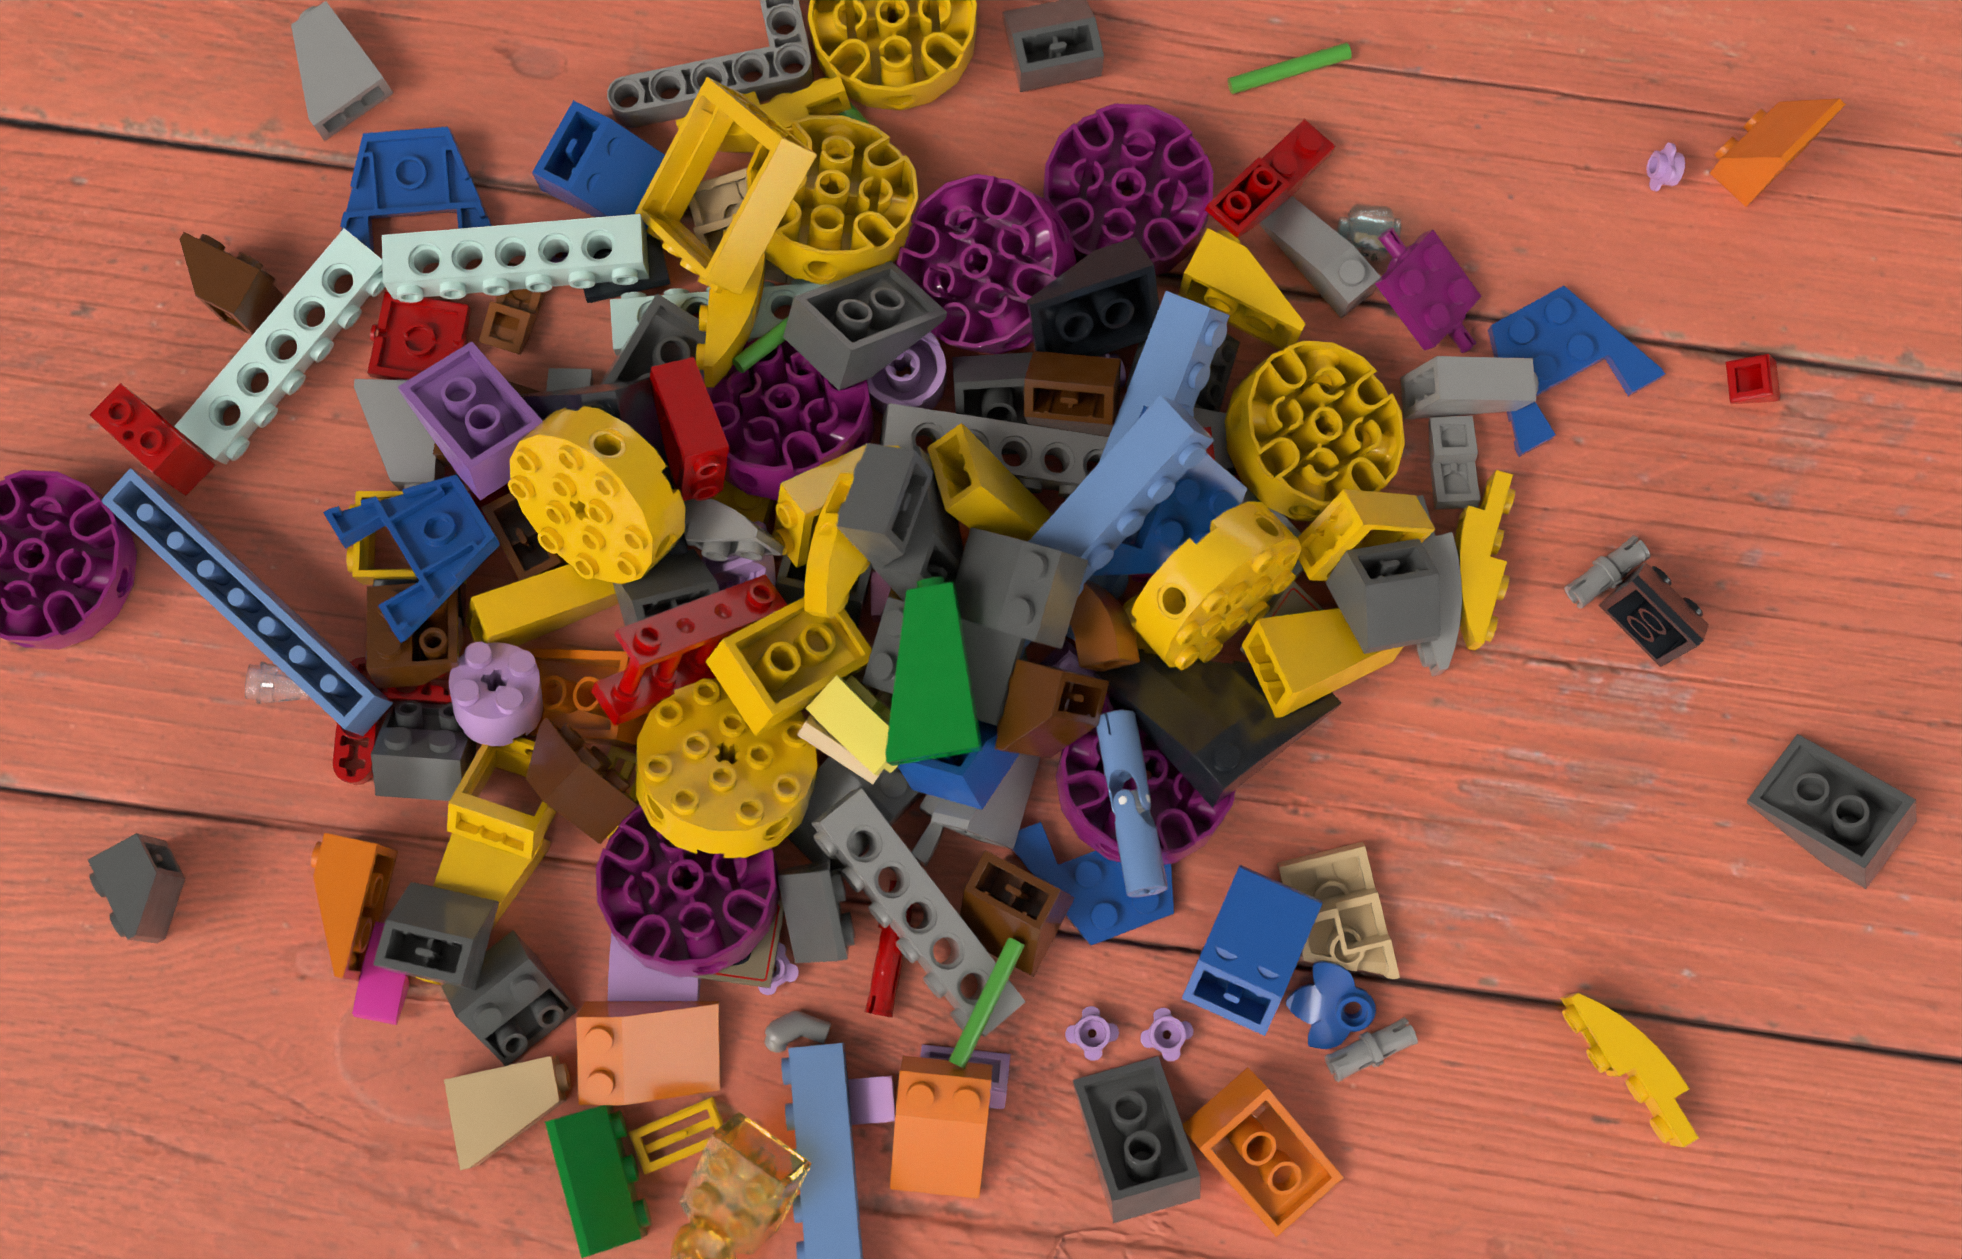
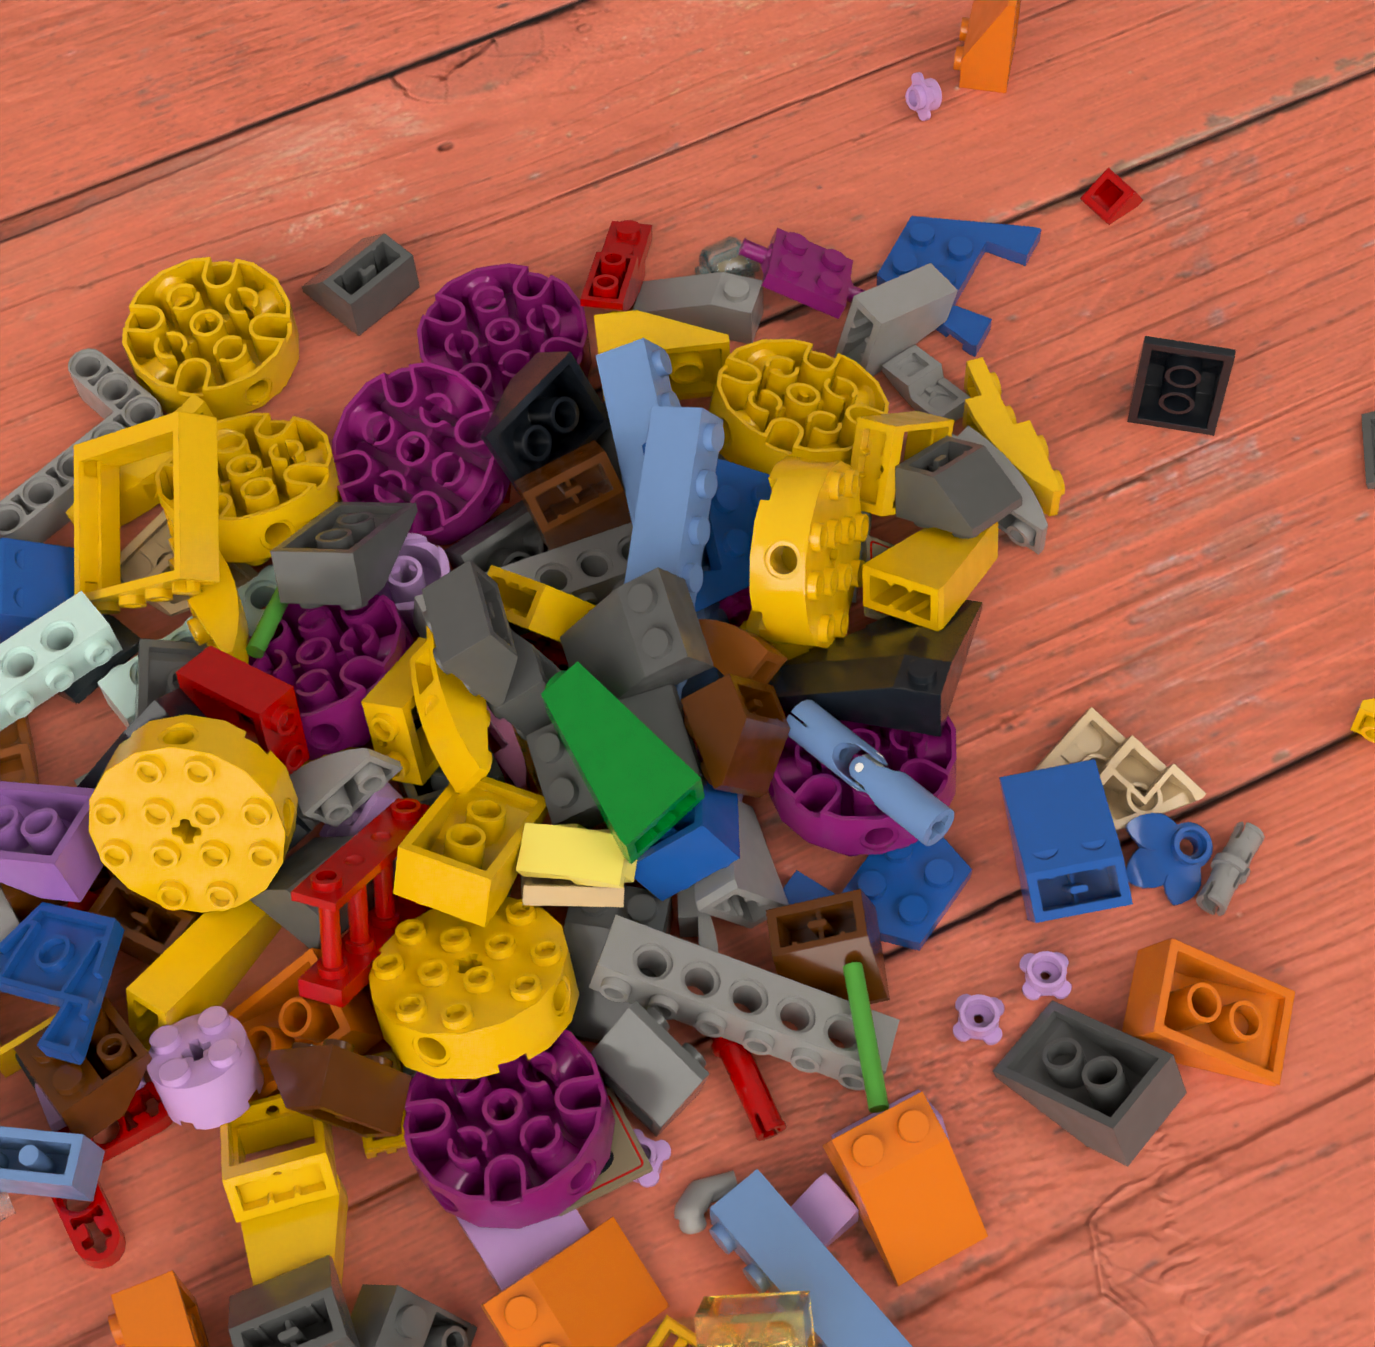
camera: 30 degrees left, 20 degrees down
(420, 752) = (164, 1180): dark grey slope -> none
(1289, 68) = (571, 198): bright green bar -> none
(1607, 572) = (1114, 390): light grey pin -> none

